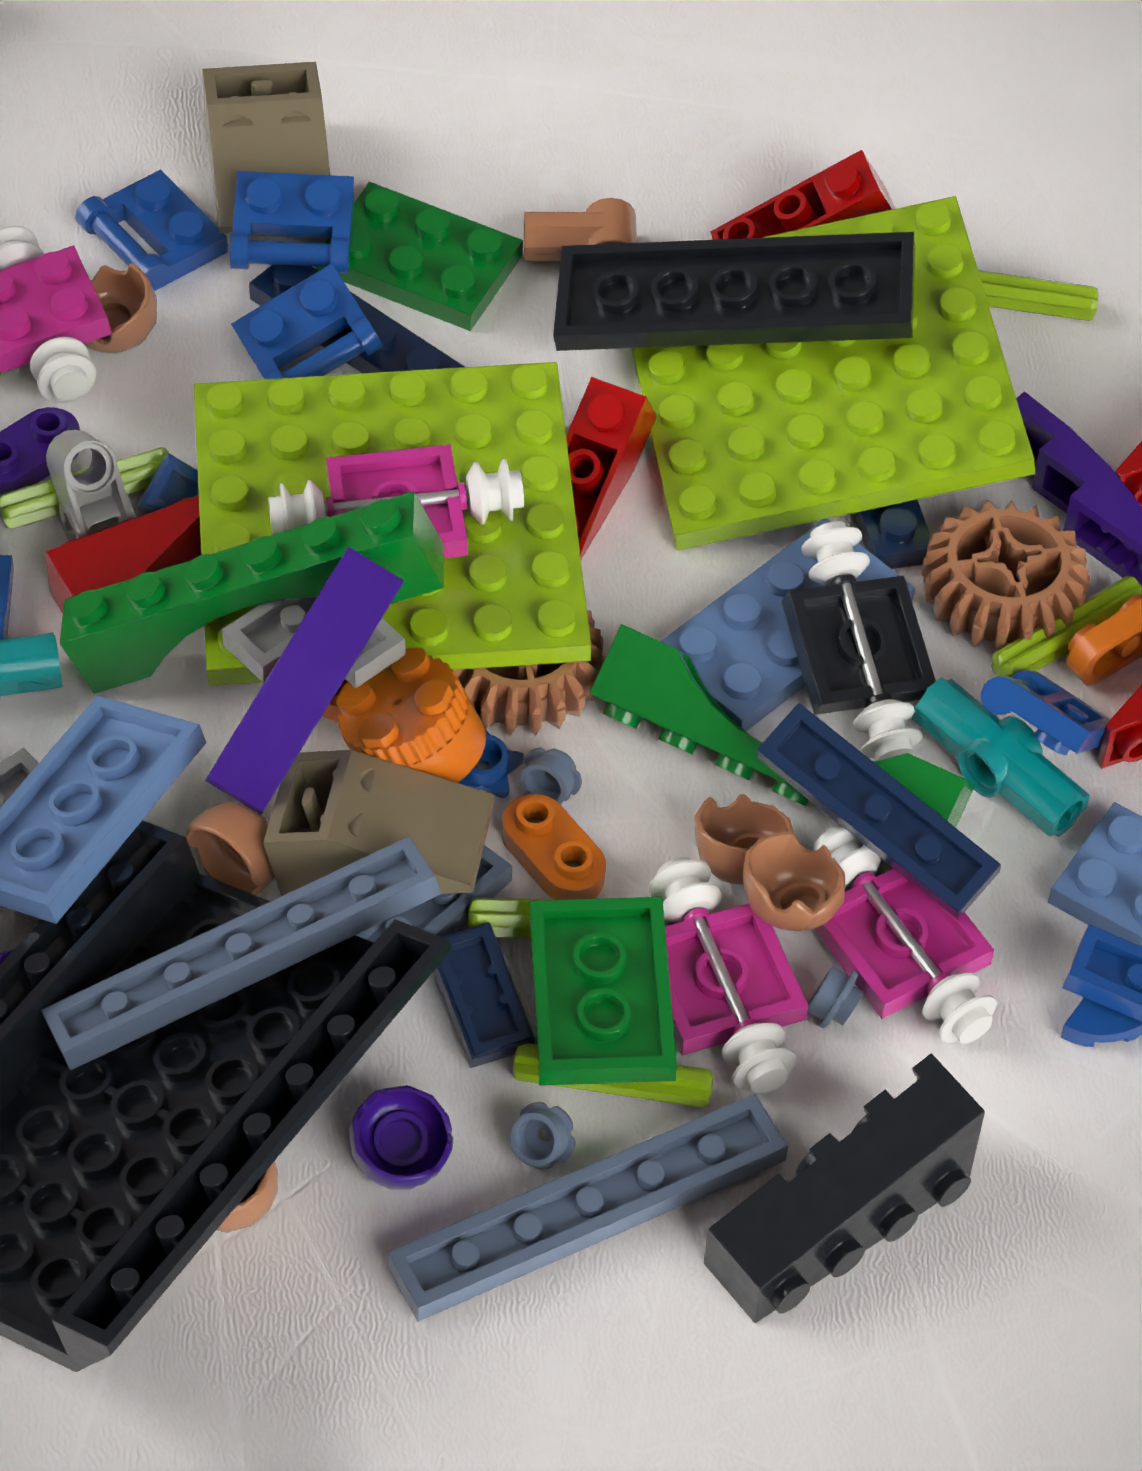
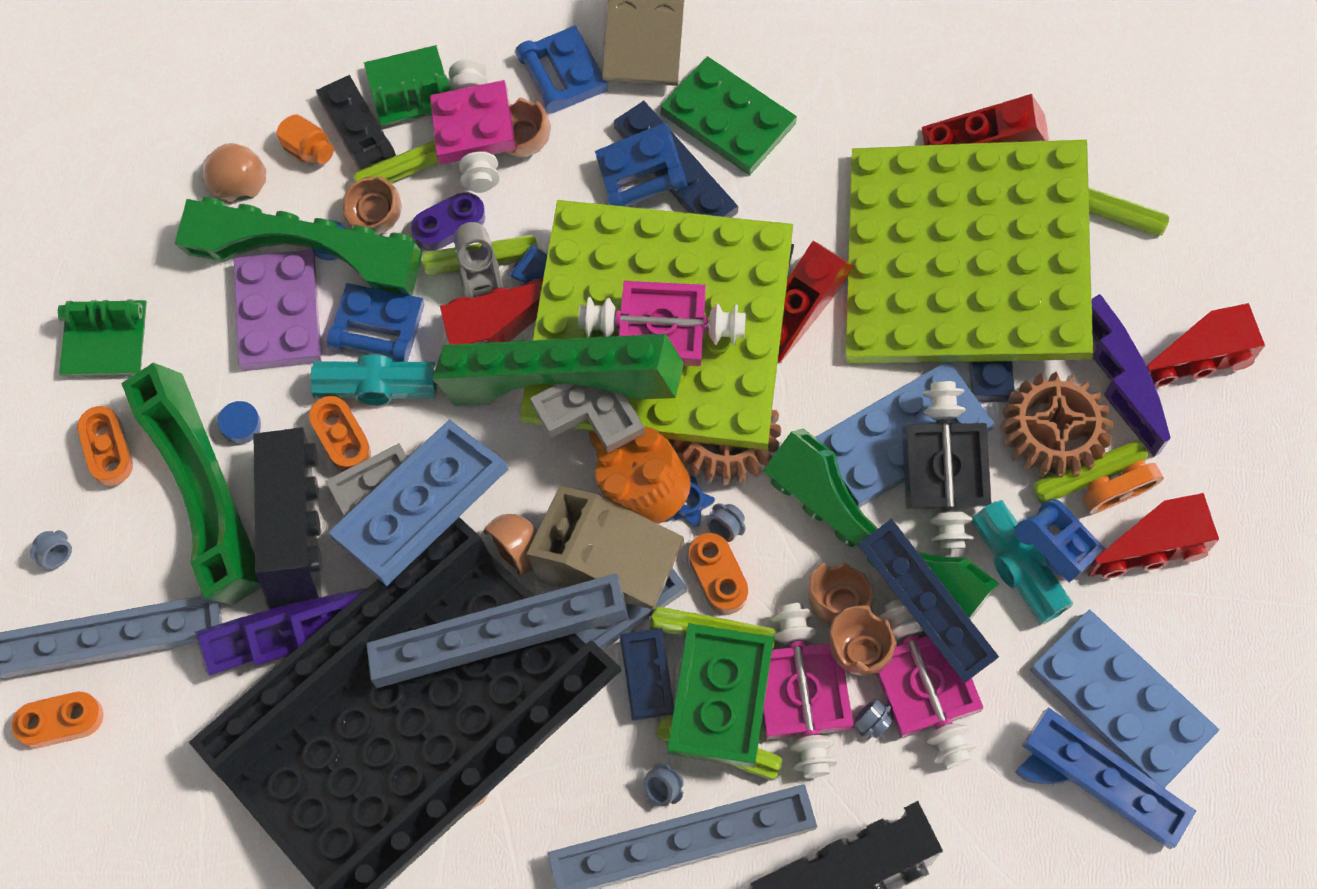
camera: 15 degrees right, 15 degrees up
(292, 207) = (651, 73): blue plate -> none
(304, 680) = (573, 449): dark purple slope -> none
(400, 1137) = (573, 772): dark purple hair -> none
(602, 223) = (845, 121): nougat piece -> none
(736, 291) = (925, 188): black plate -> none

